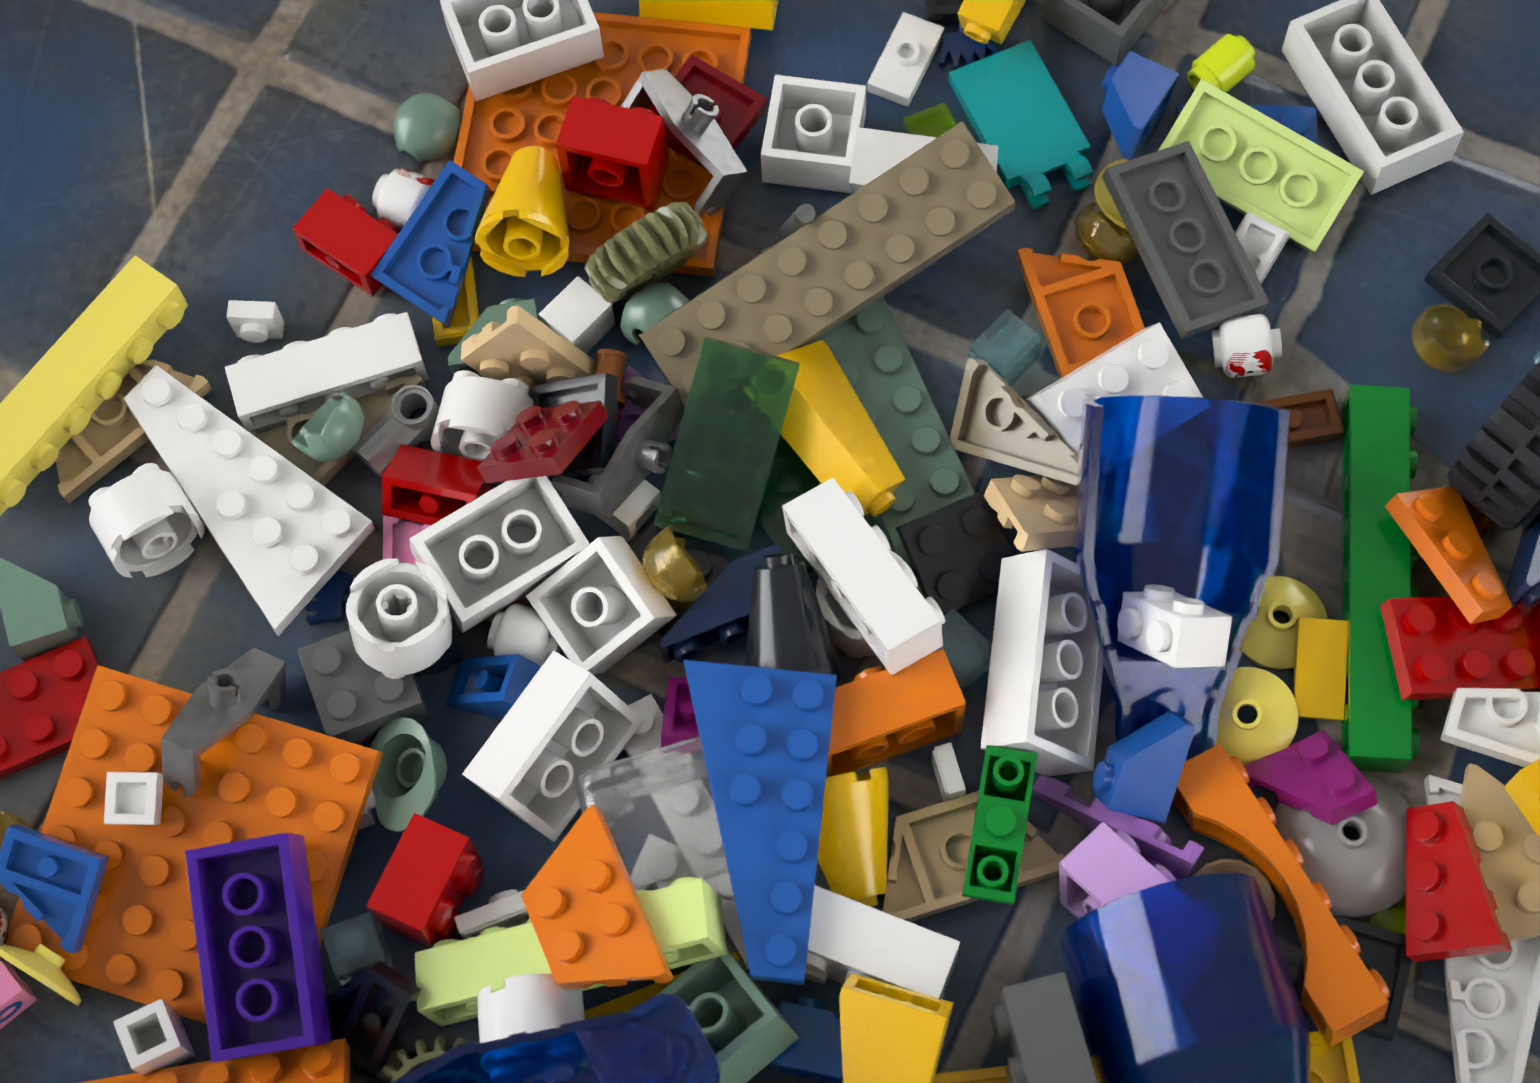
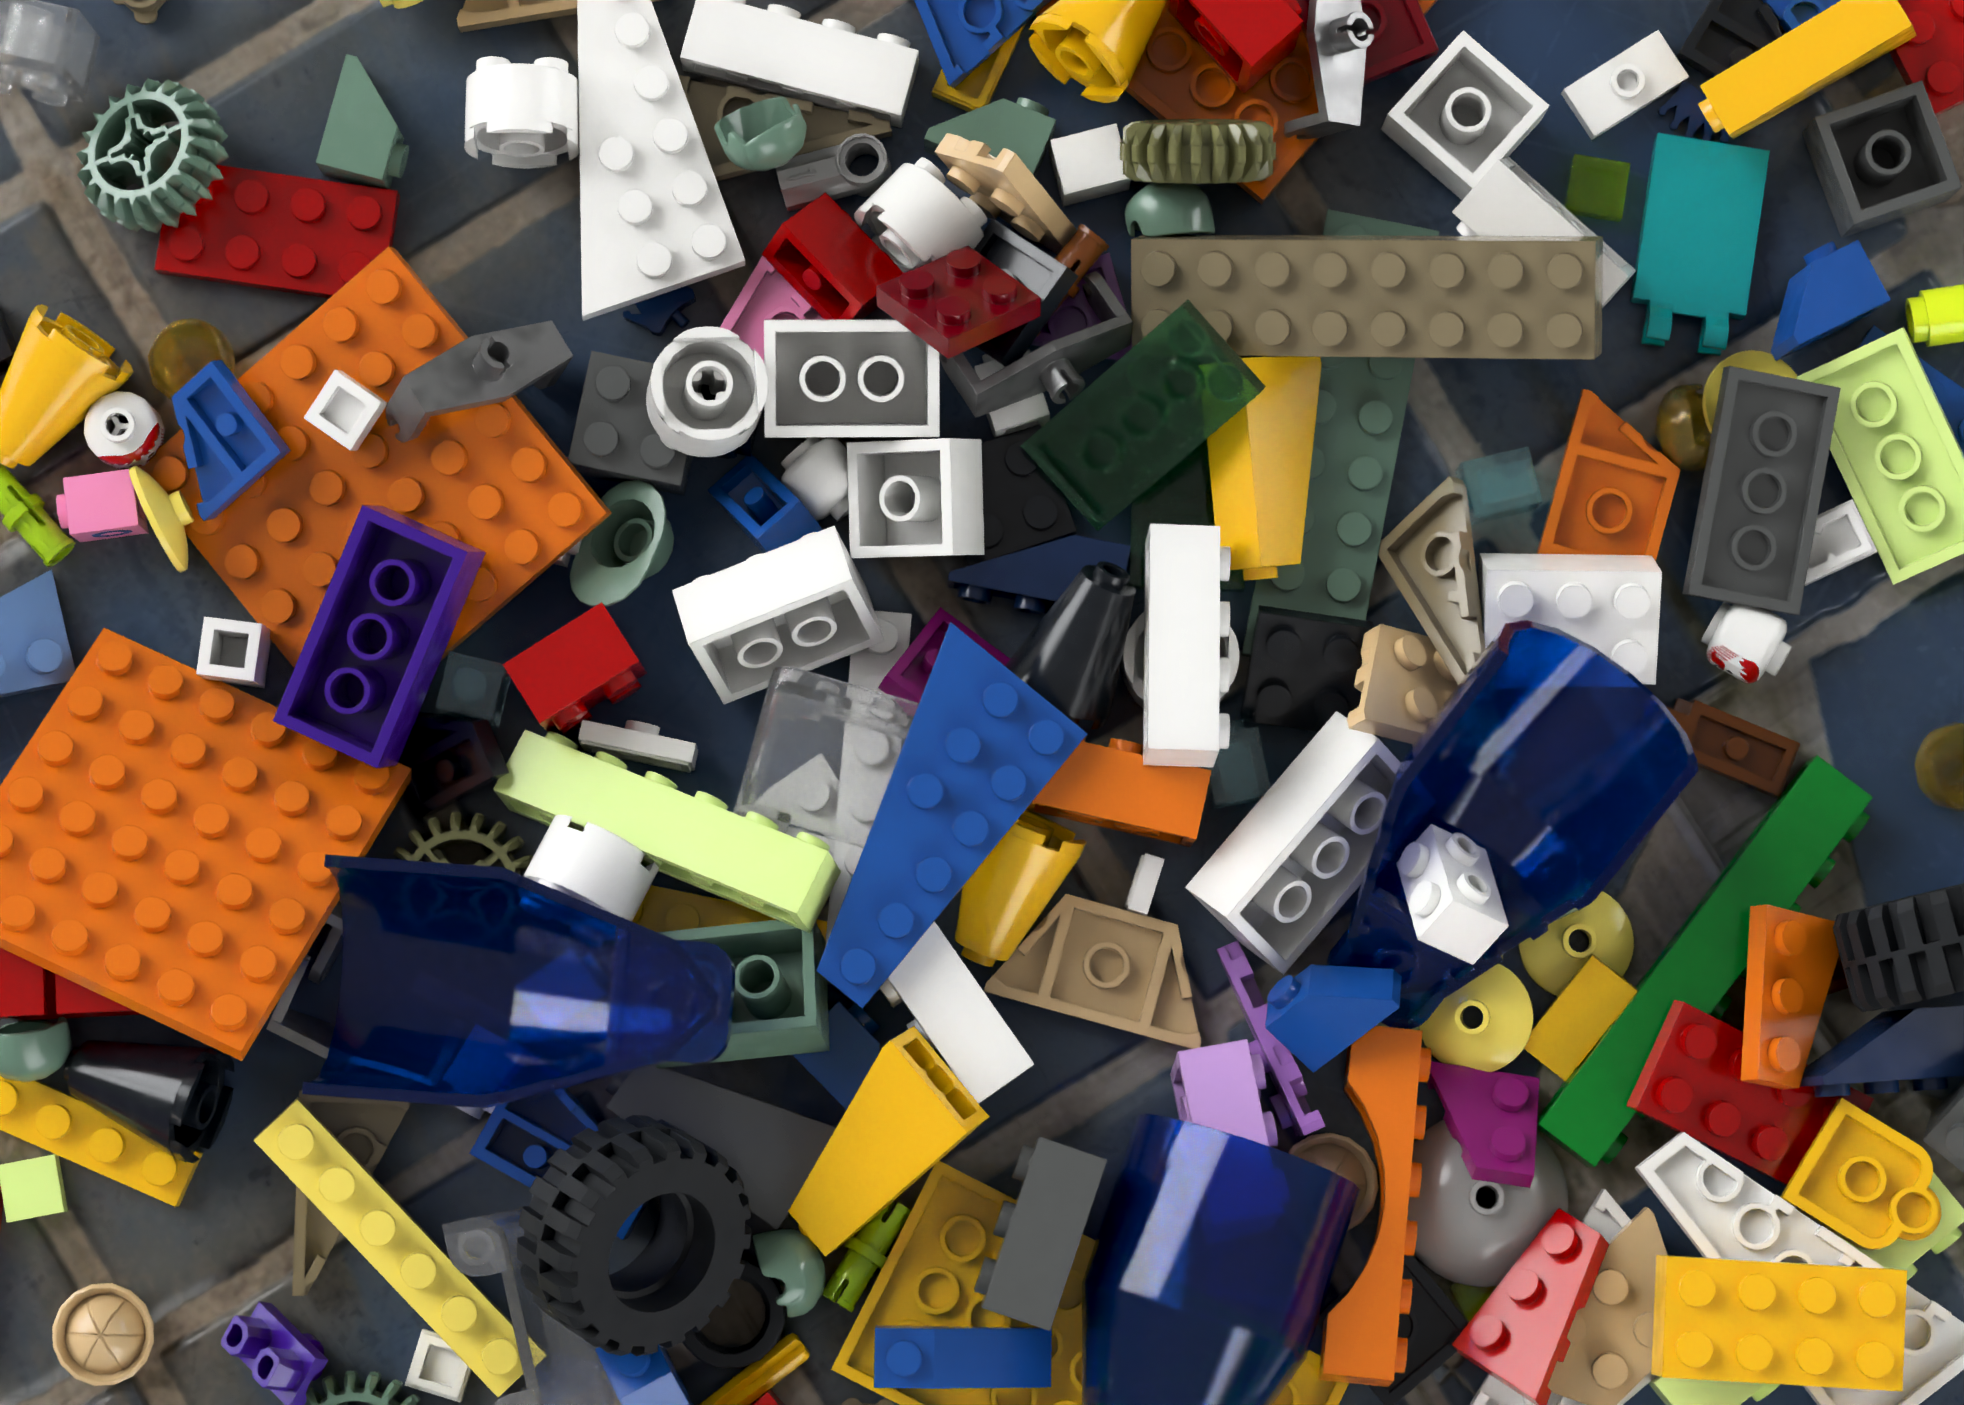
camera: 25 degrees right, 15 degrees up
(591, 913) = (707, 813): orange wing -> none
(672, 568) = (1009, 508): clear yellow hair -> none
(802, 215) = (1370, 218): flat silver bar -> none
(999, 825) = (1150, 975): green slope -> none

